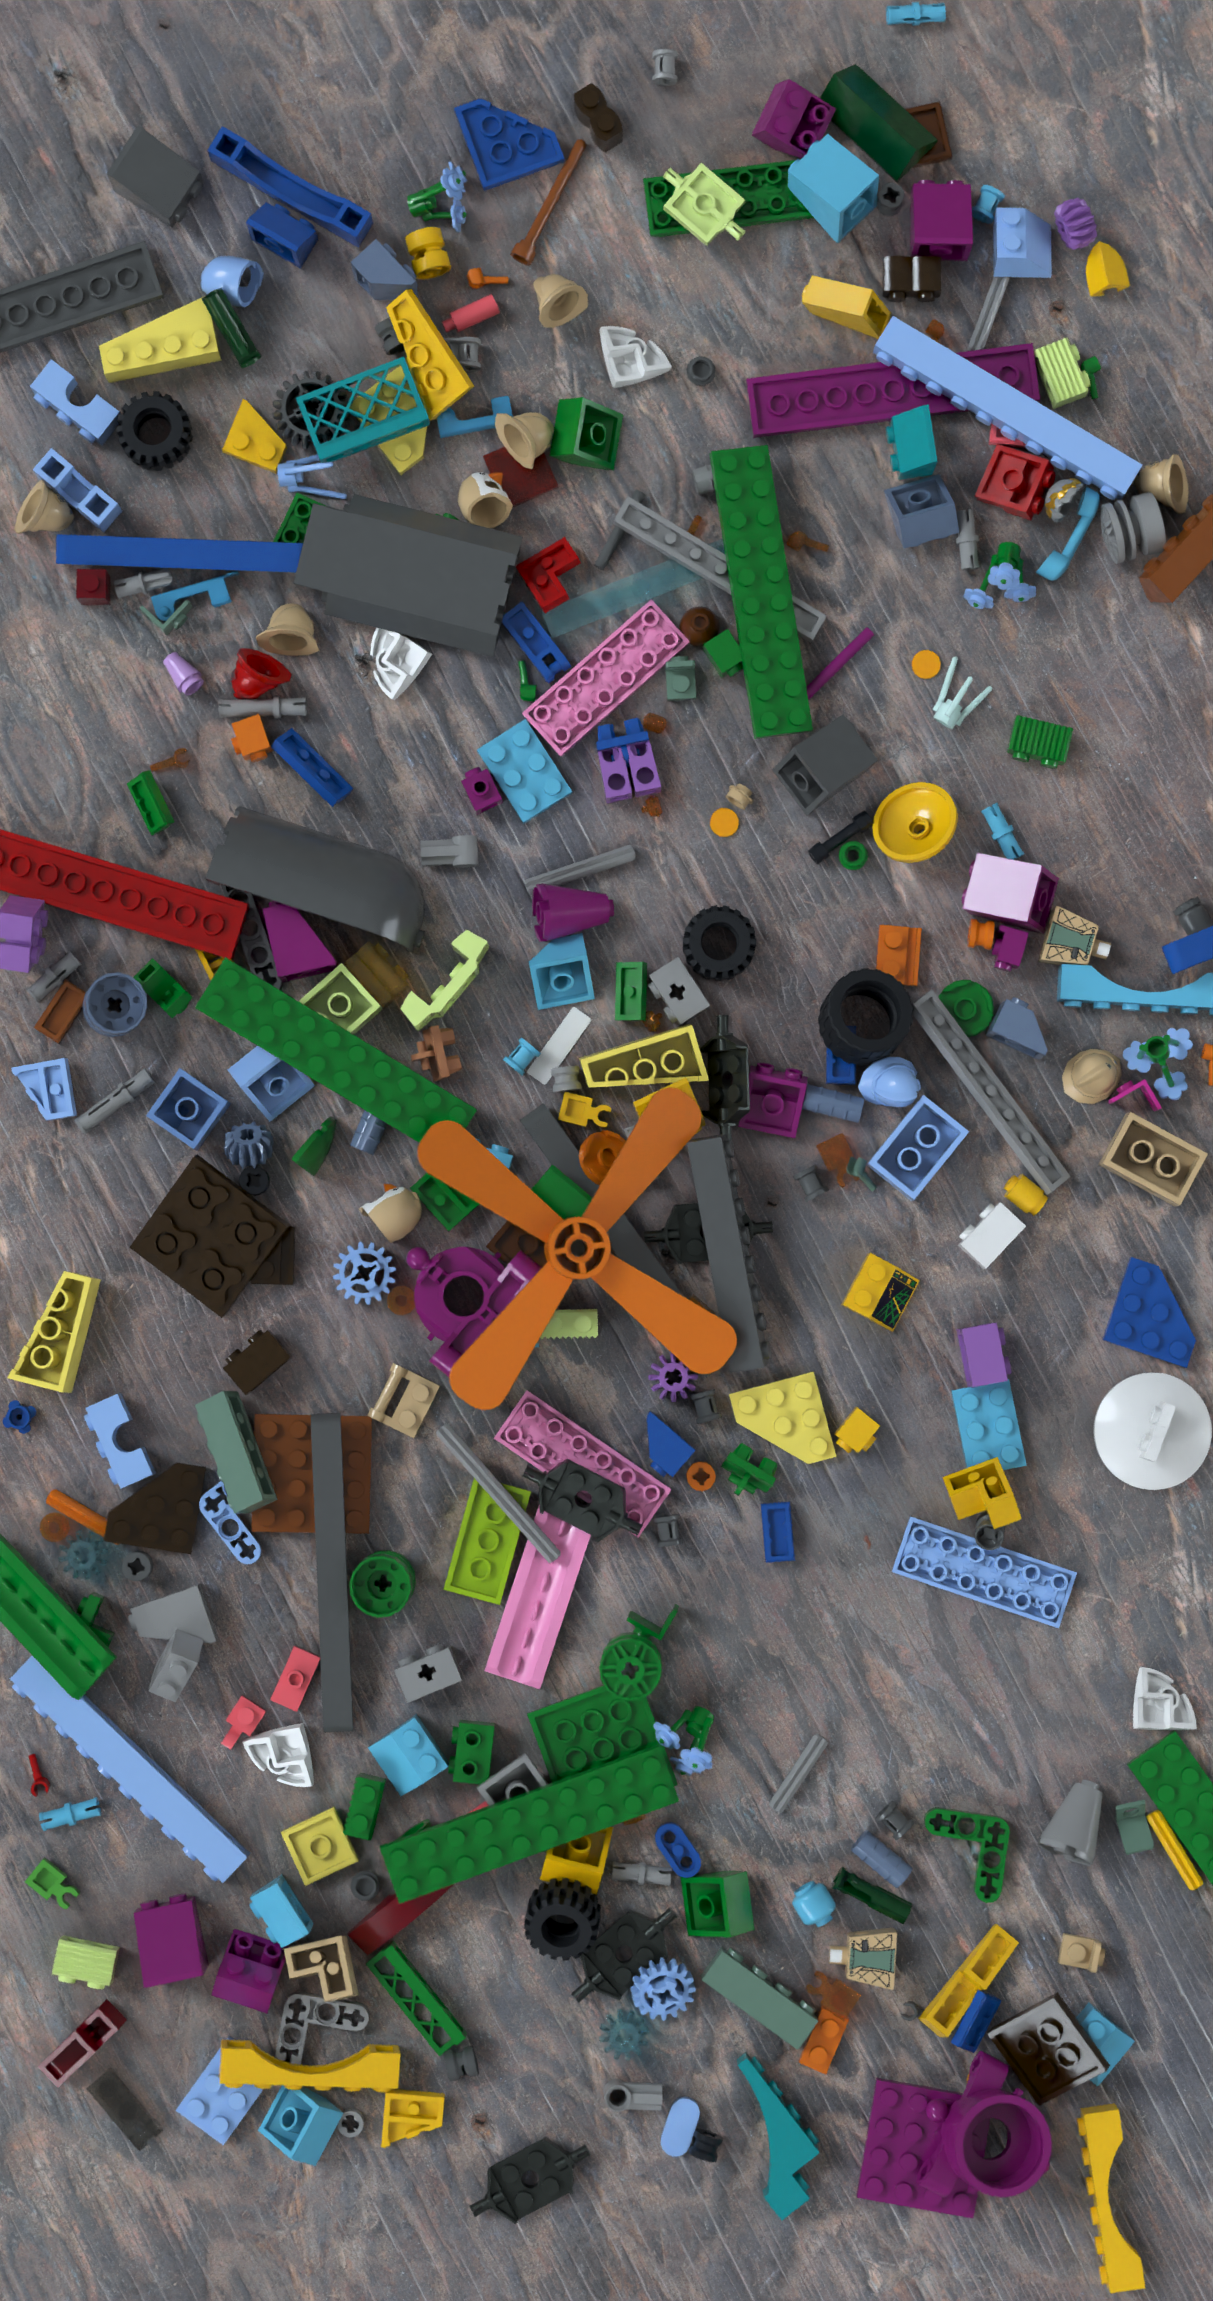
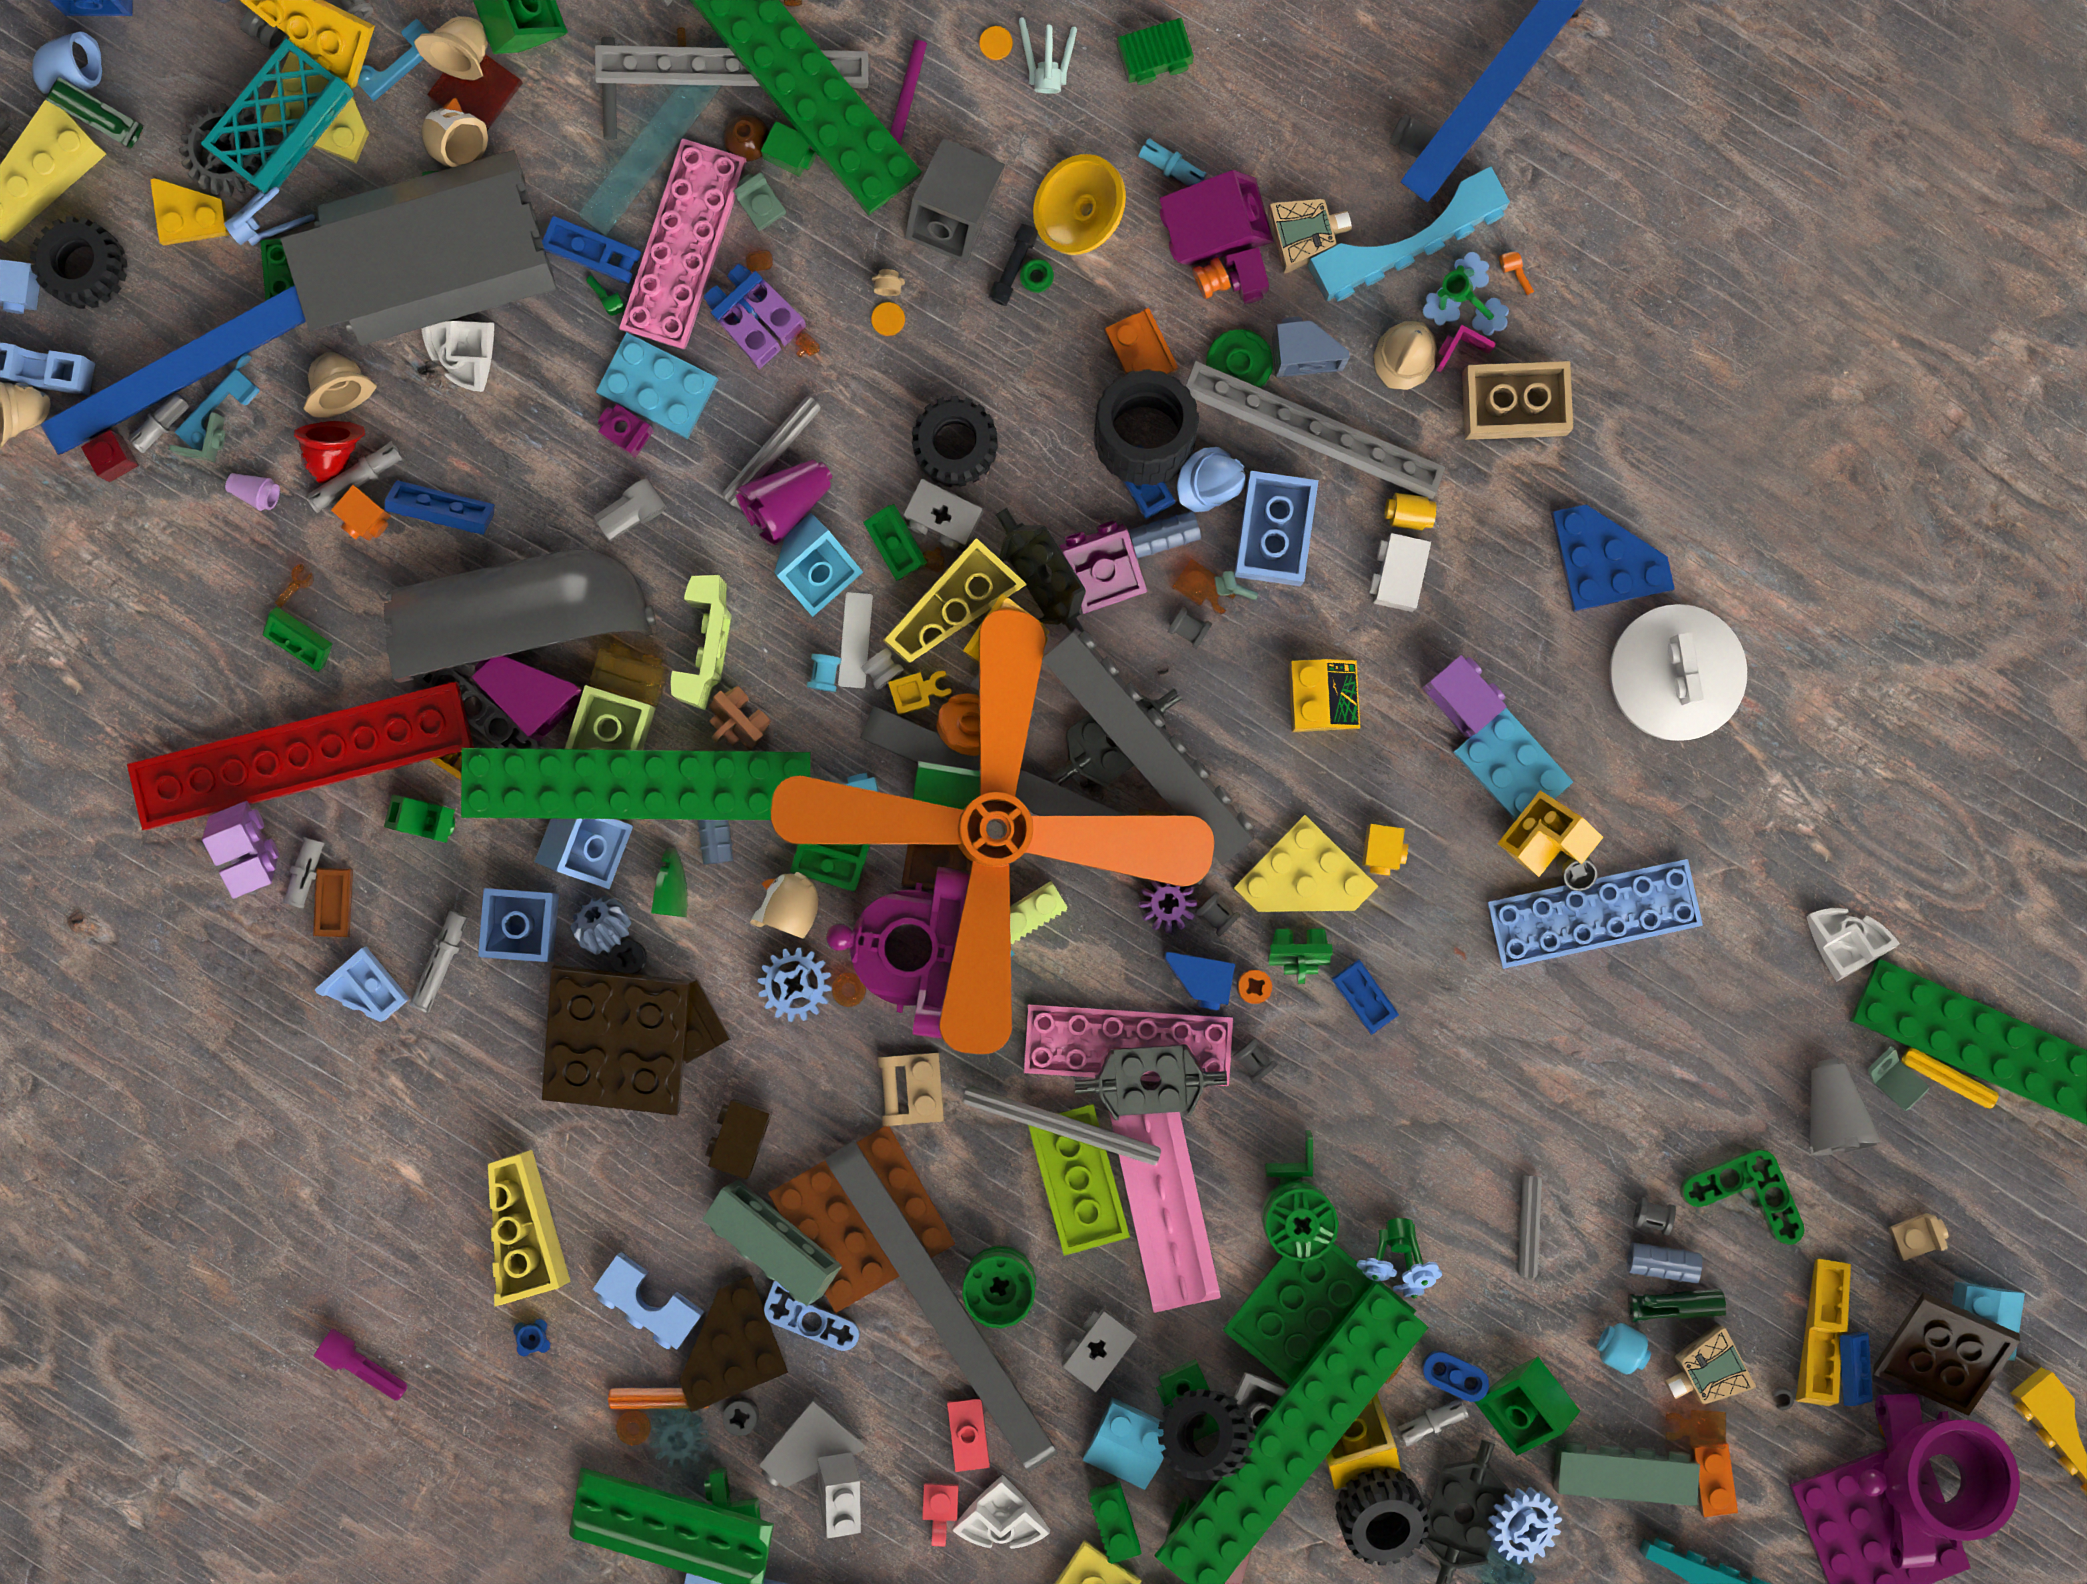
camera: 30 degrees left, 0 degrees up
(114, 987) = (370, 846): sand blue wheel -> none
(451, 1767) = (1179, 1431): none -> black tyre
(542, 570) = (556, 175): red plate -> none

